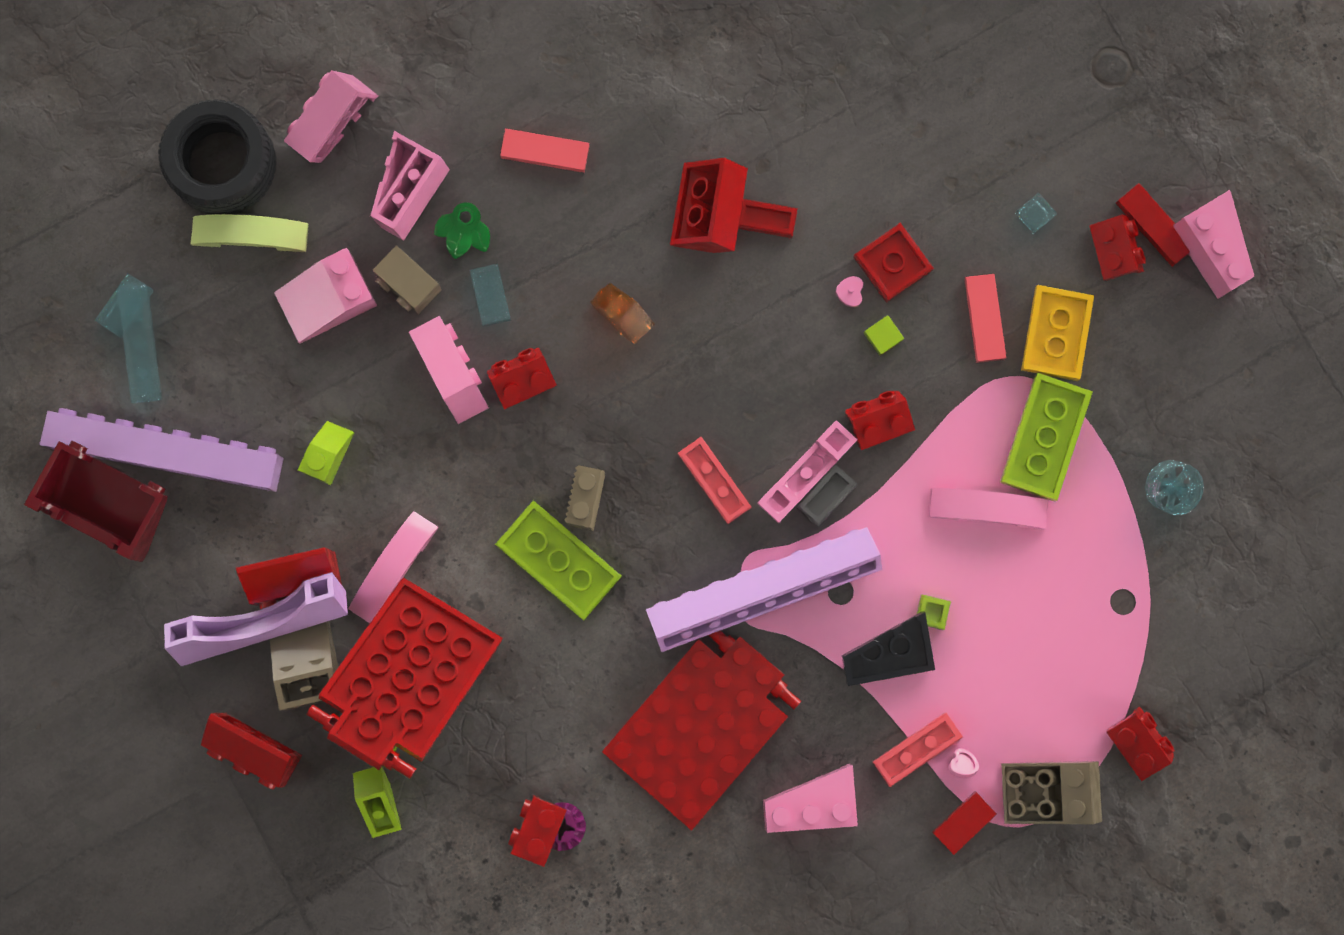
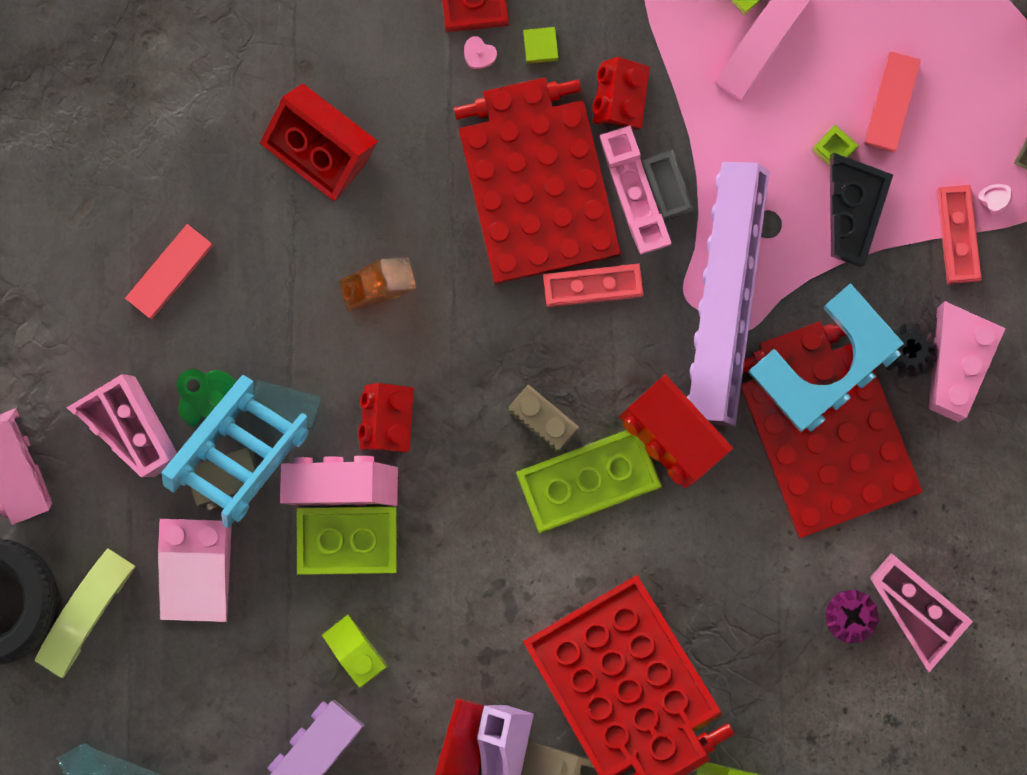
camera: 55 degrees left, 0 degrees up
(392, 566) = (506, 647): bright pink slope -> none
(409, 399) = (346, 540): none -> lime plate
(446, 253) = (222, 423): none -> medium azure fence
(537, 831) = (844, 641): red bracket -> none
(594, 877) = (920, 610): none -> bright pink wedge
(628, 606) = (675, 432): none -> red slope
(709, 697) = (871, 343): none -> medium azure arch
(767, 218) = (362, 91): red tile -> none
(773, 391) = (536, 180): none -> red plate
(799, 748) = (920, 358): none -> black gear
(995, 638) = (892, 102): none -> coral tile

